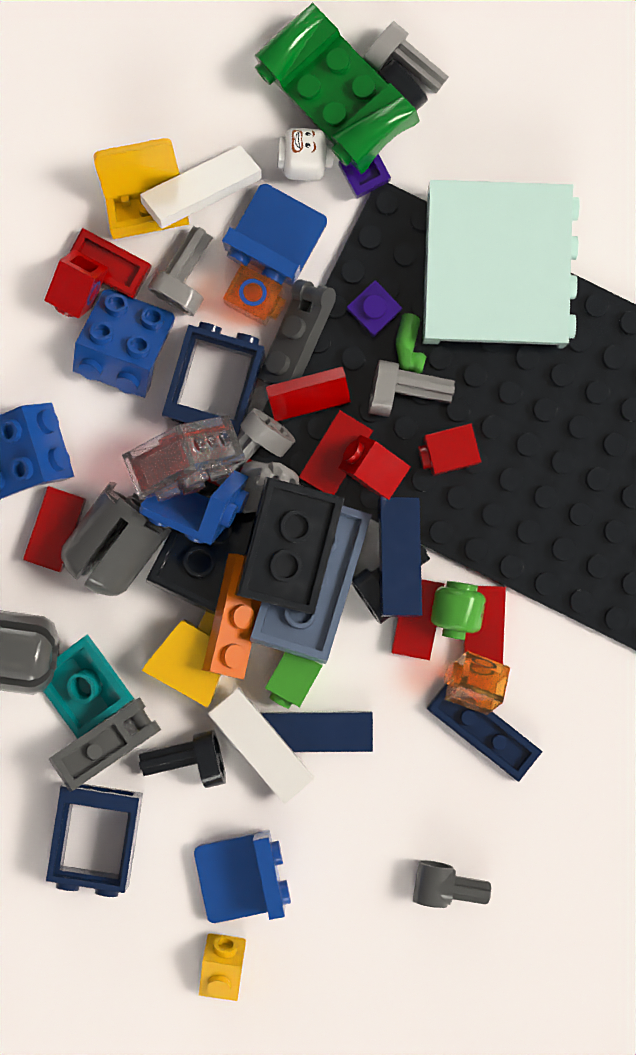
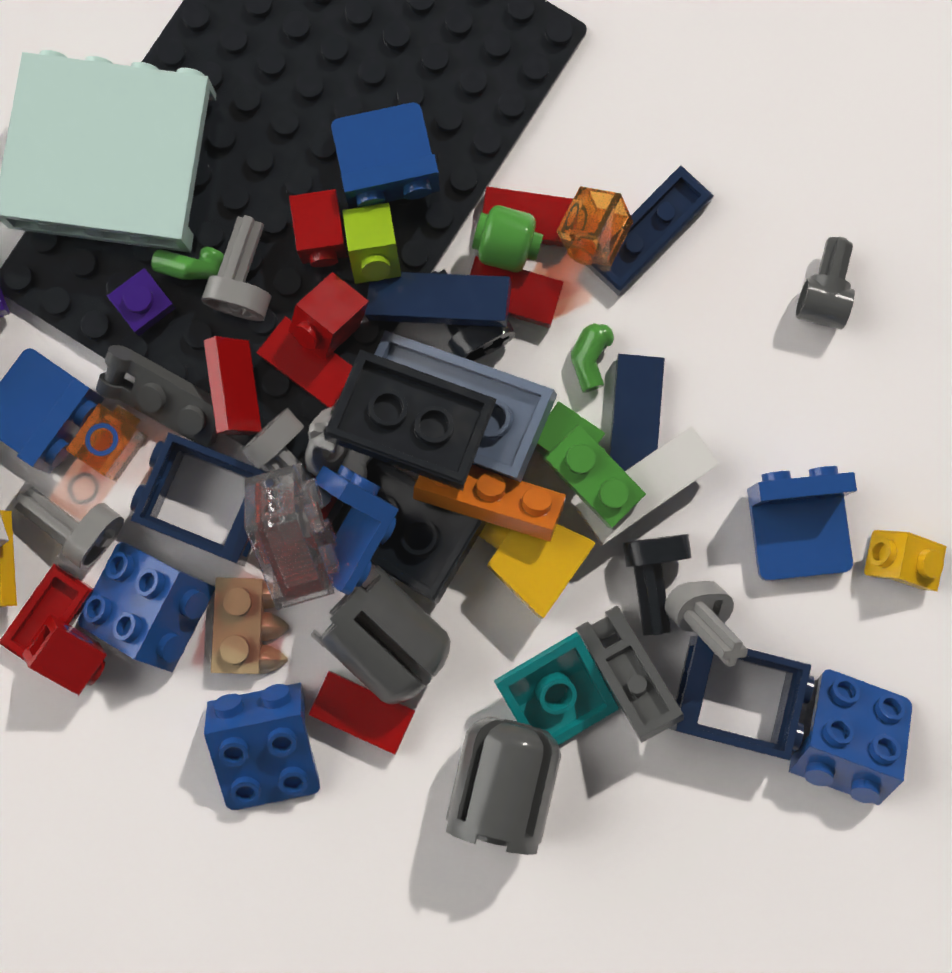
camera: 90 degrees left, 5 degrees down
(71, 935) = (855, 739): none -> blue bracket
(115, 423) = (243, 626): none -> tan plate
(162, 798) = (705, 609): none -> light grey piece
(261, 701) = (594, 476): none -> bright green plate
(371, 685) = (587, 351): none -> bright green arm
(439, 496) = (371, 243): none -> lime brick
(519, 498) = (385, 156): none -> blue bracket

